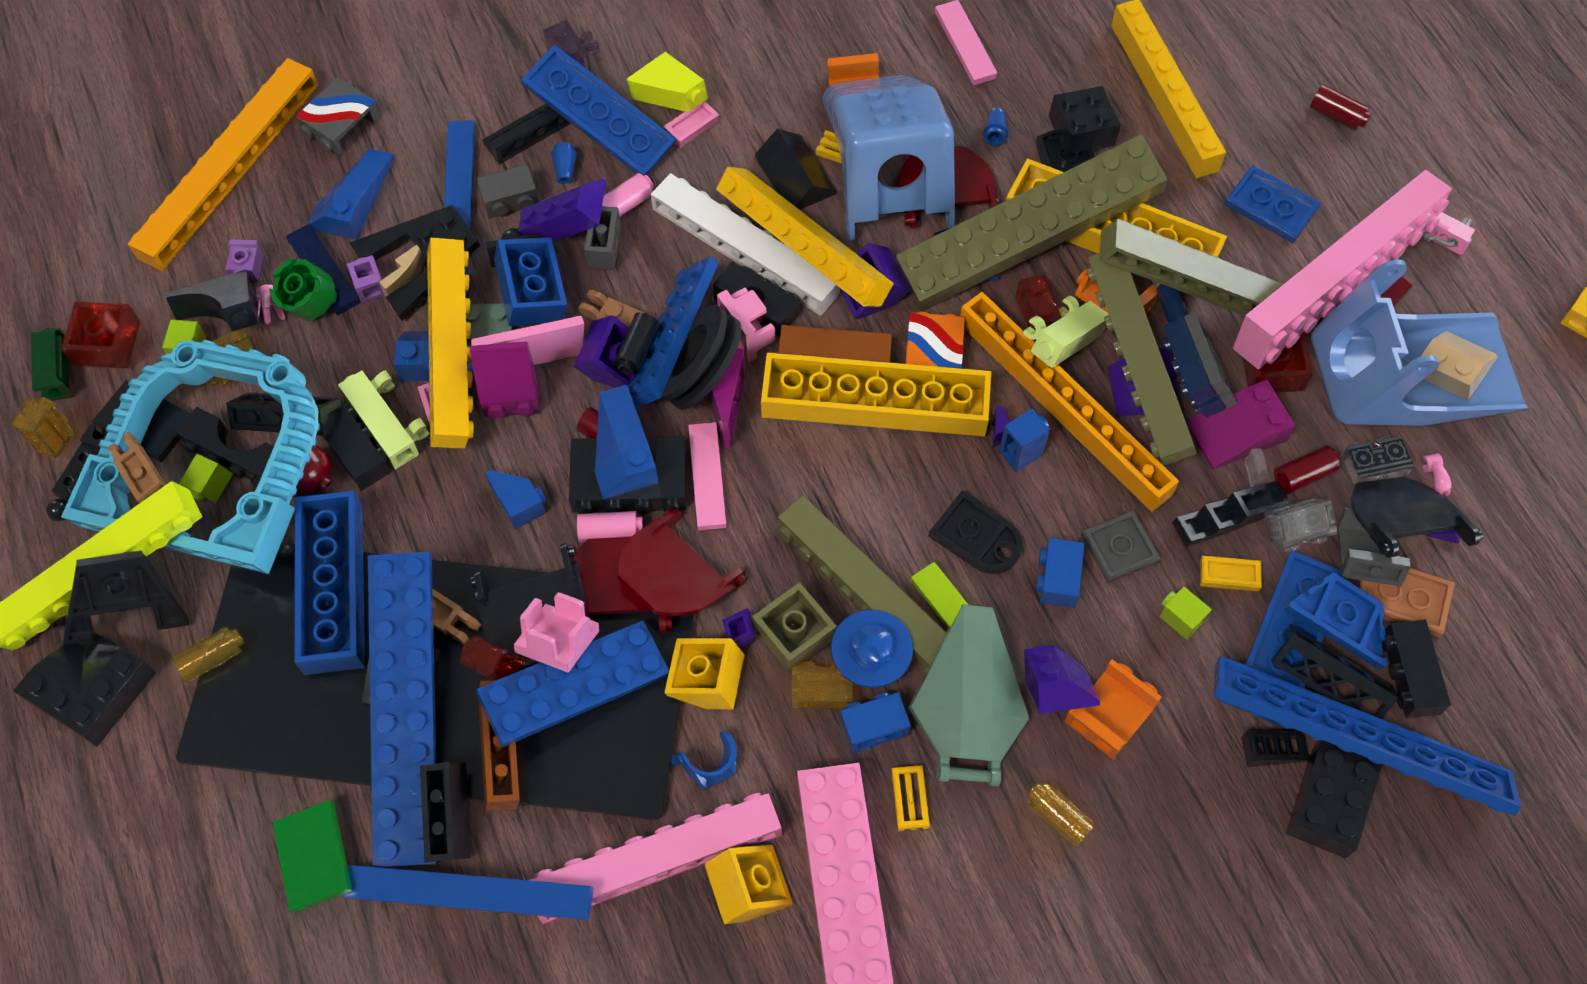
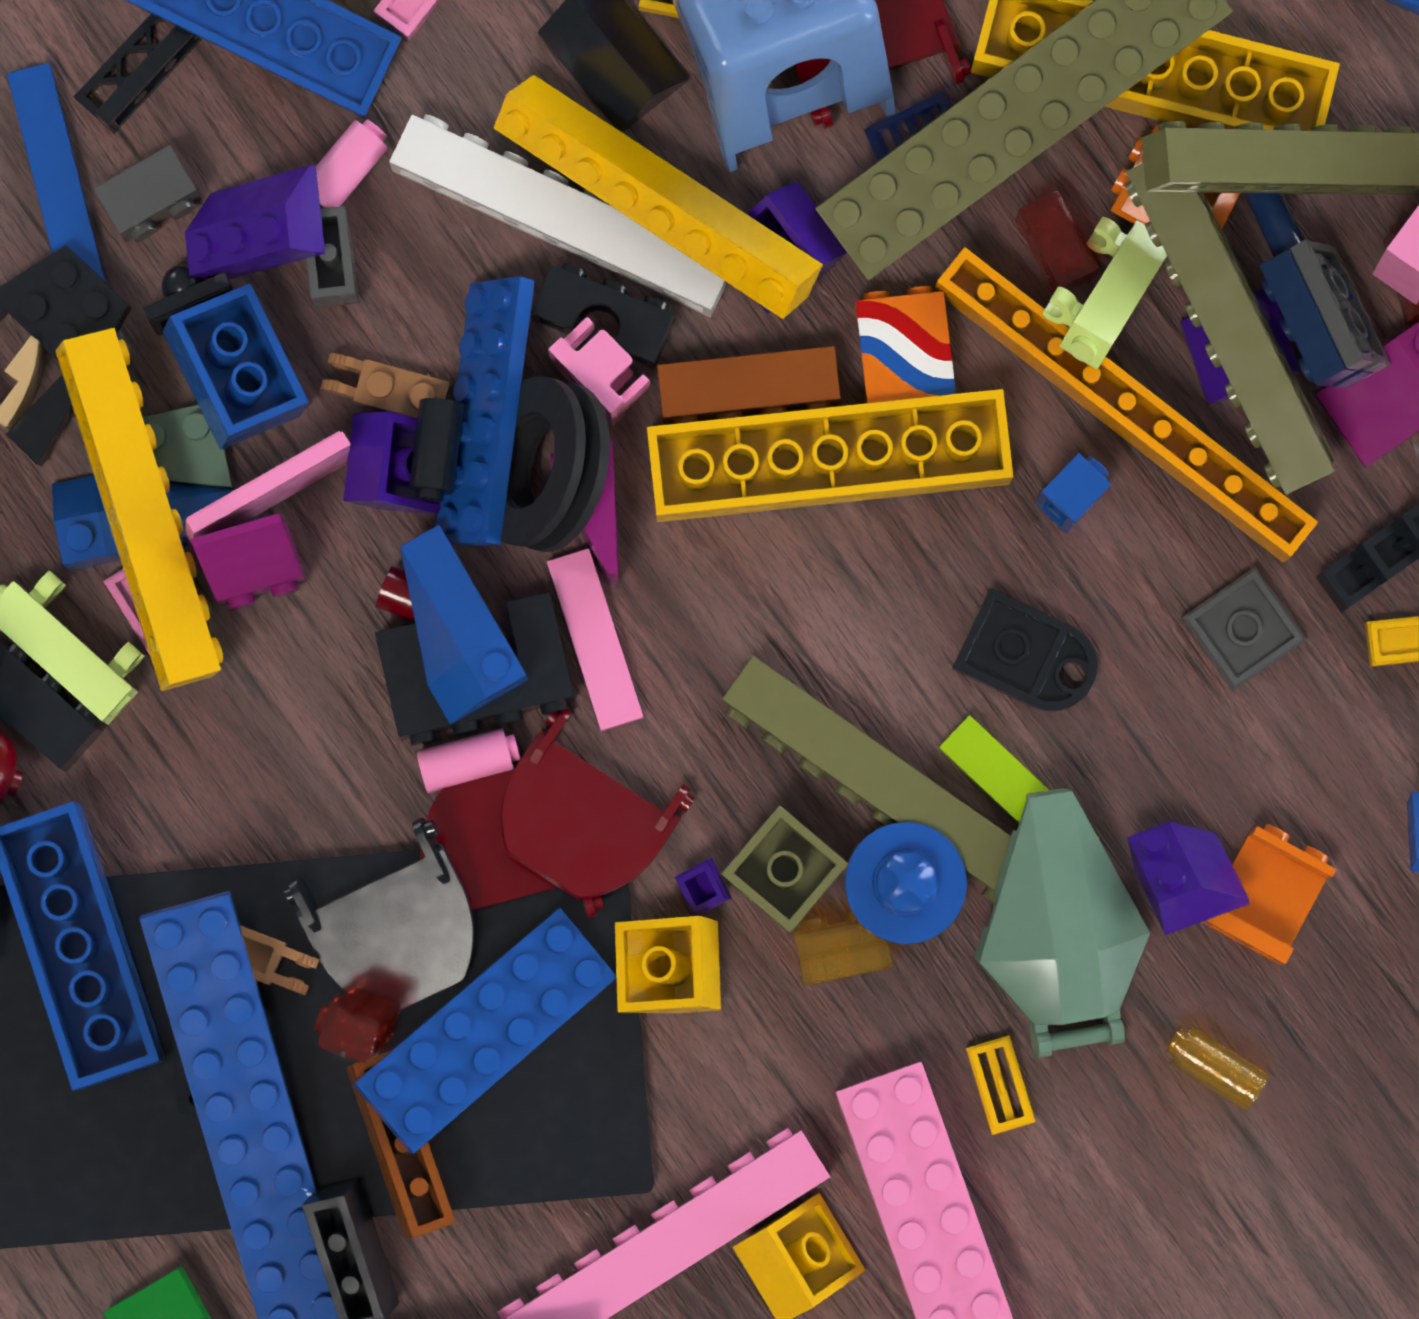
camera: 15 degrees left, 20 degrees up
(517, 497) = (314, 741): blue slope -> none
(556, 633) = (444, 969): bright pink panel -> none
(564, 161) = (225, 116): blue cone -> none
(725, 770) = (726, 1100): blue helmet -> none
(874, 721) = (928, 987): blue brick -> none
(1000, 420) = (1032, 467): dark purple slope -> none
(1061, 572) = (1161, 695): blue brick -> none
(1184, 612) = (1352, 722): lime brick -> none

